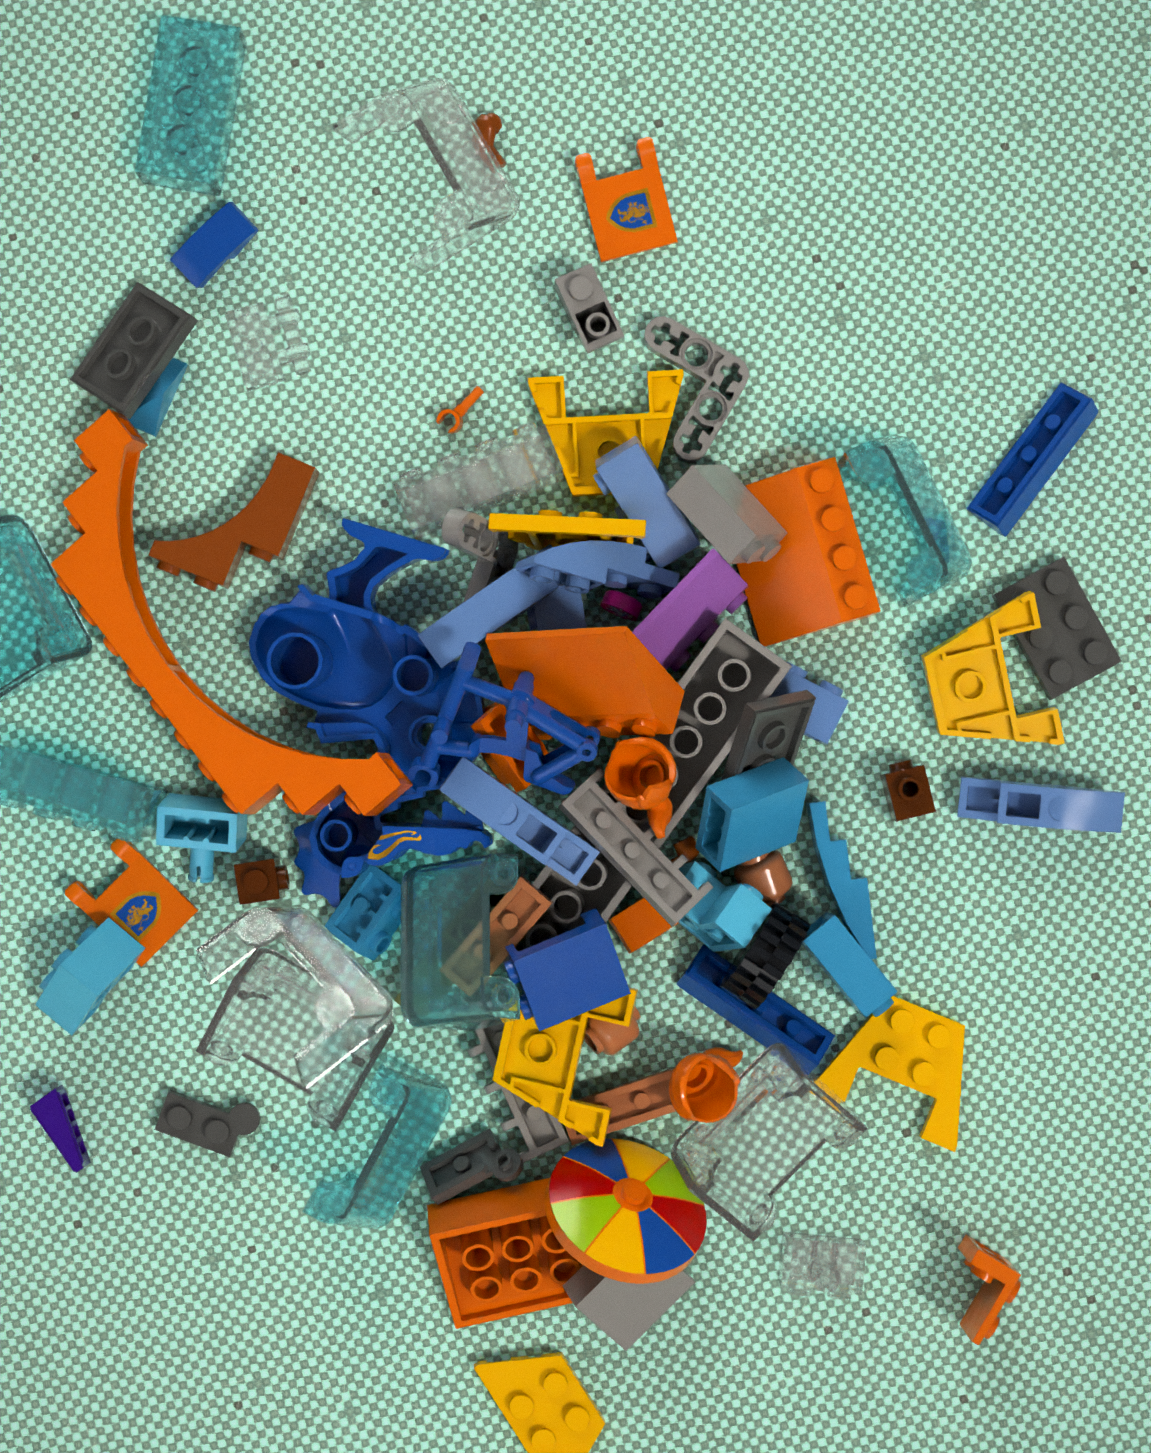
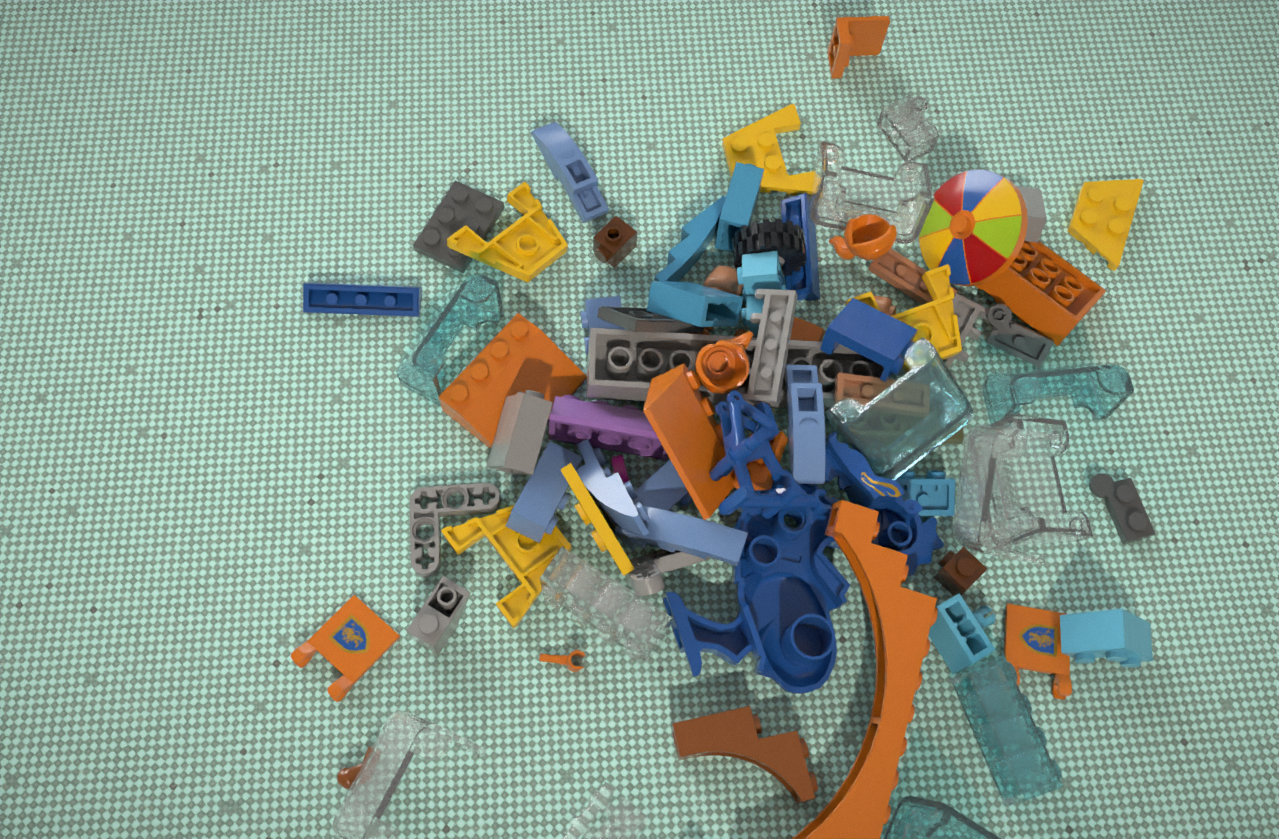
camera: 130 degrees left, 20 degrees down
(60, 1124) = (1205, 593): dark purple slope -> none

